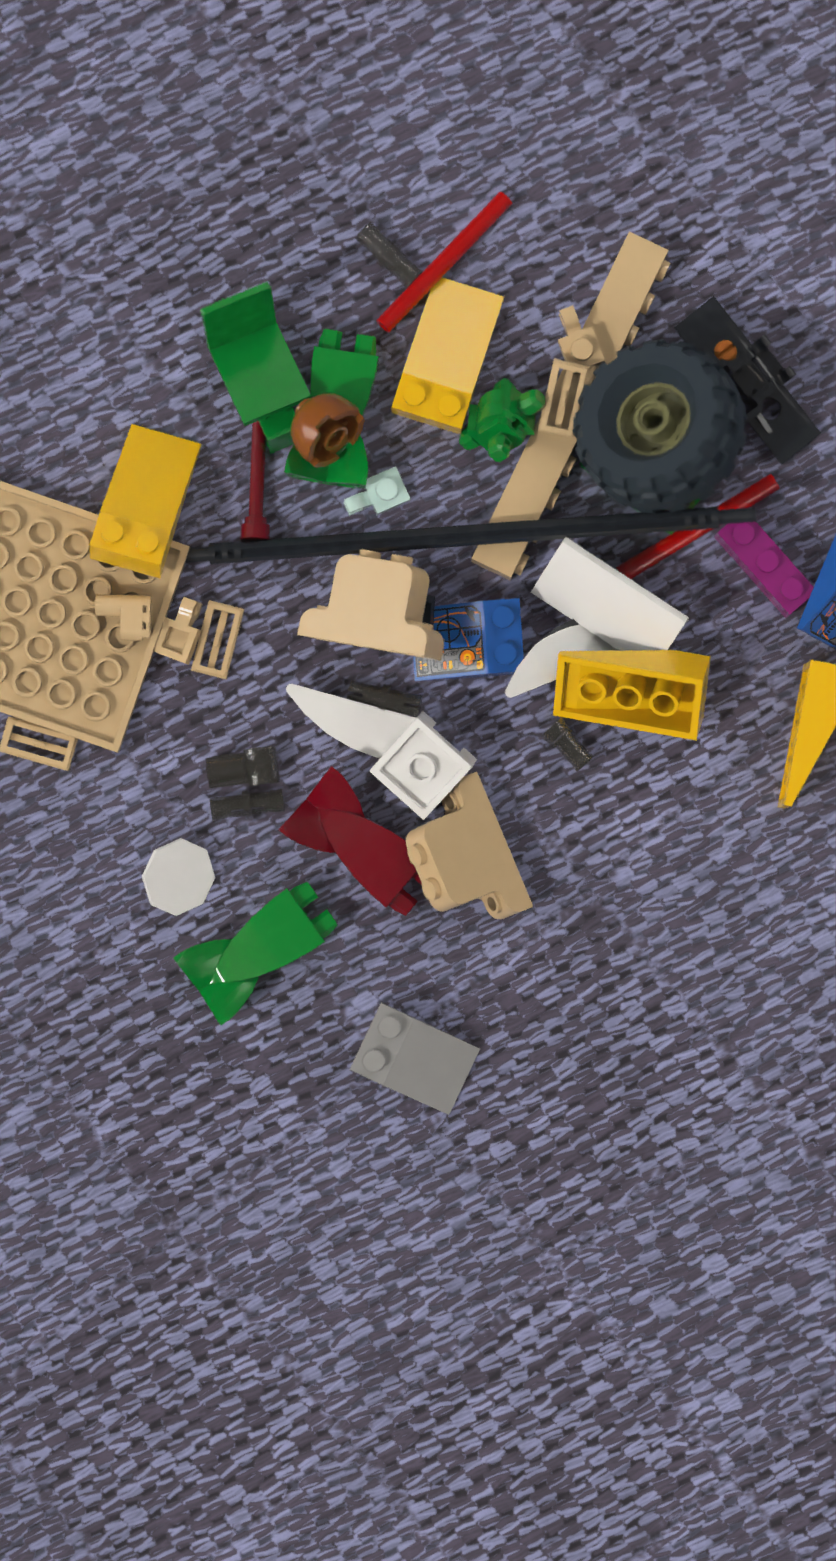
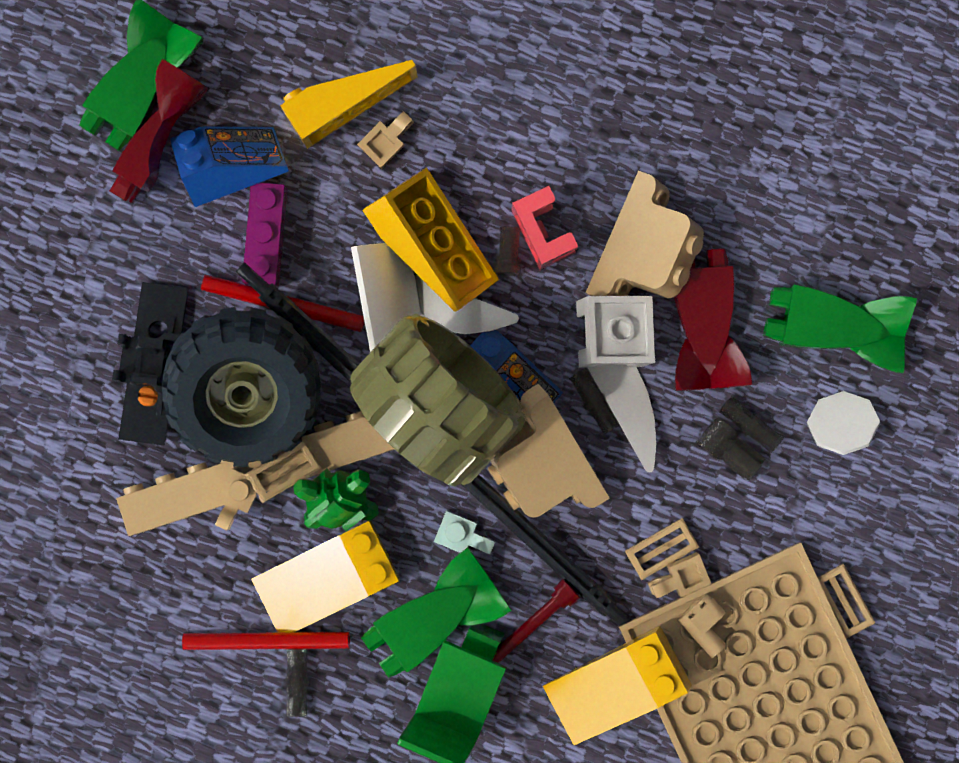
camera: 135 degrees left, 0 degrees up
(324, 427) = (456, 612): dark orange cylinder -> none
(414, 1058) = (811, 155): light grey slope -> none
(503, 562) = (436, 400): none -> olive wheel
(563, 777) = (534, 231): none -> coral panel
(750, 728) = (382, 142): none -> tan plate

